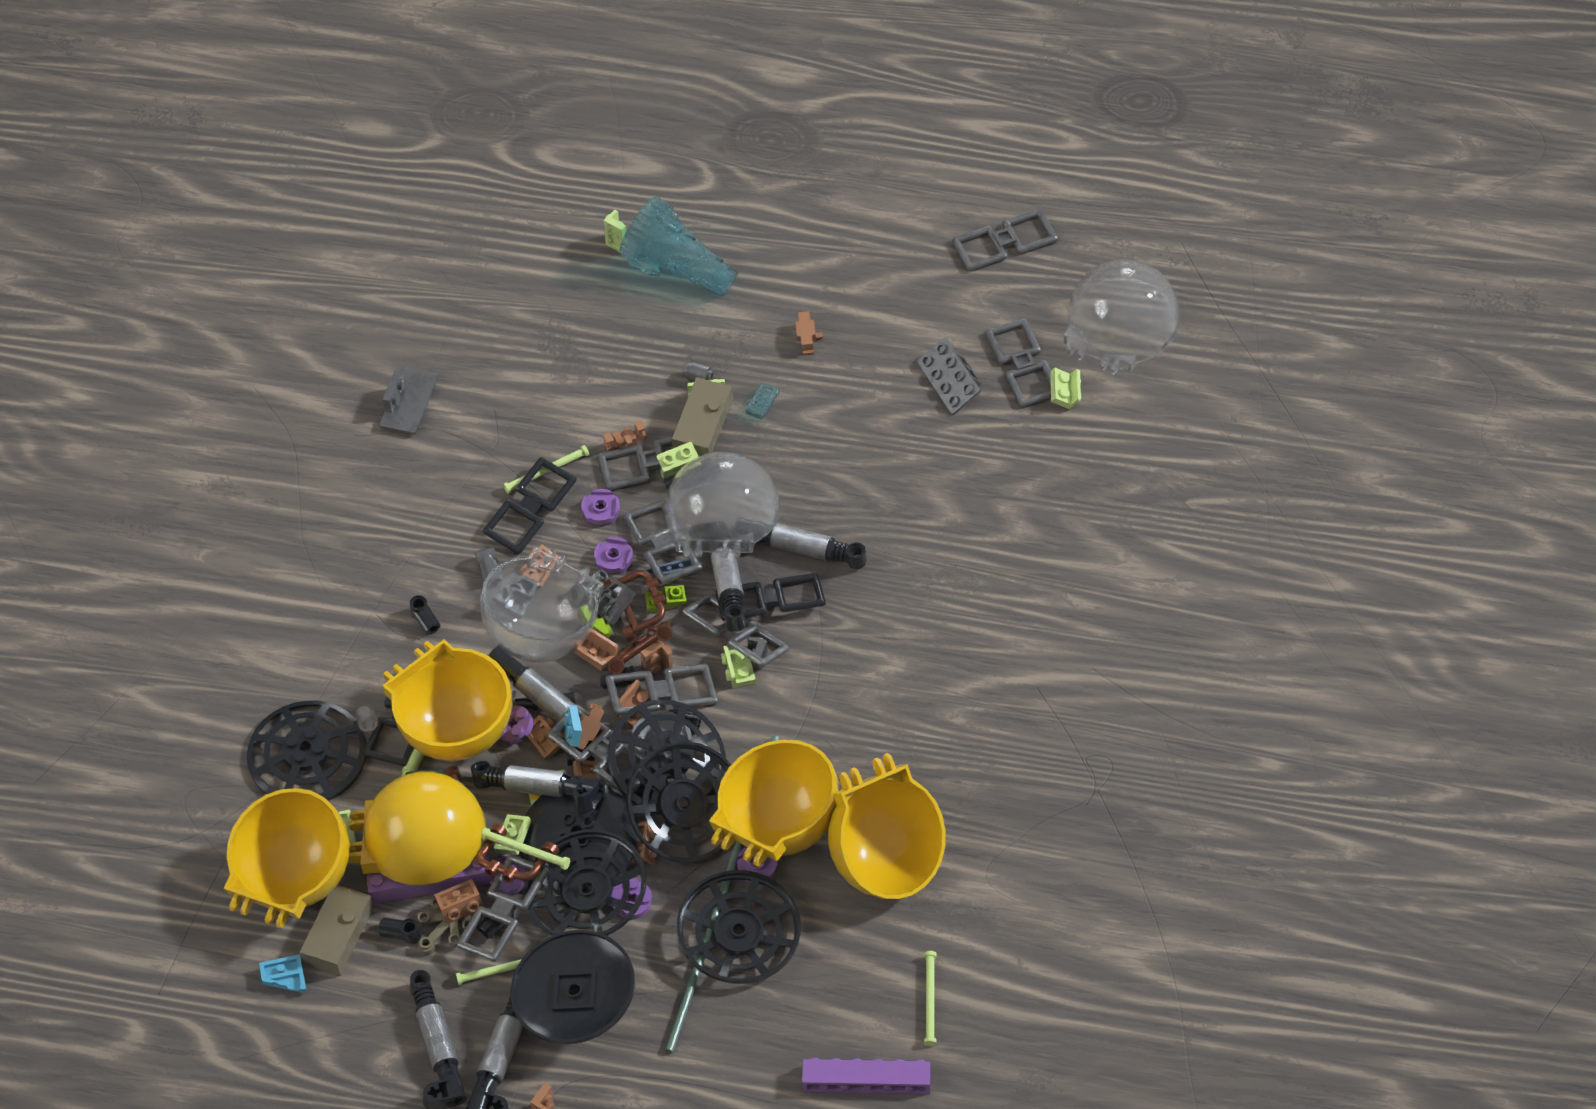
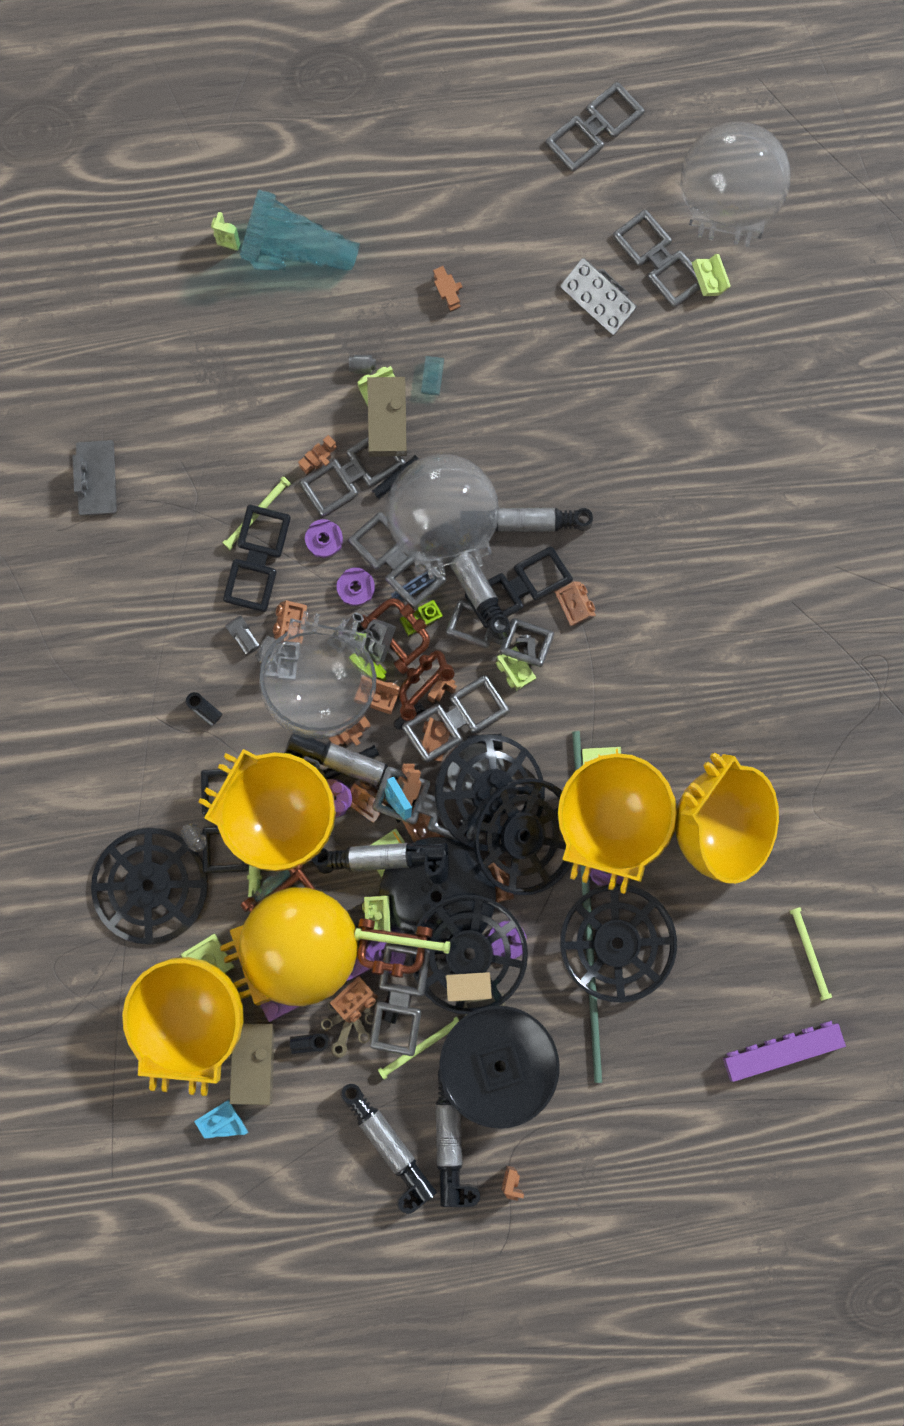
camera: 20 degrees left, 25 degrees up
(559, 677) = (353, 735): none -> nougat piece
(572, 908) = (468, 986): none -> tan piece
(675, 459) = (381, 469): yellowish green bracket -> none
(820, 625) = (575, 602): none -> nougat bracket

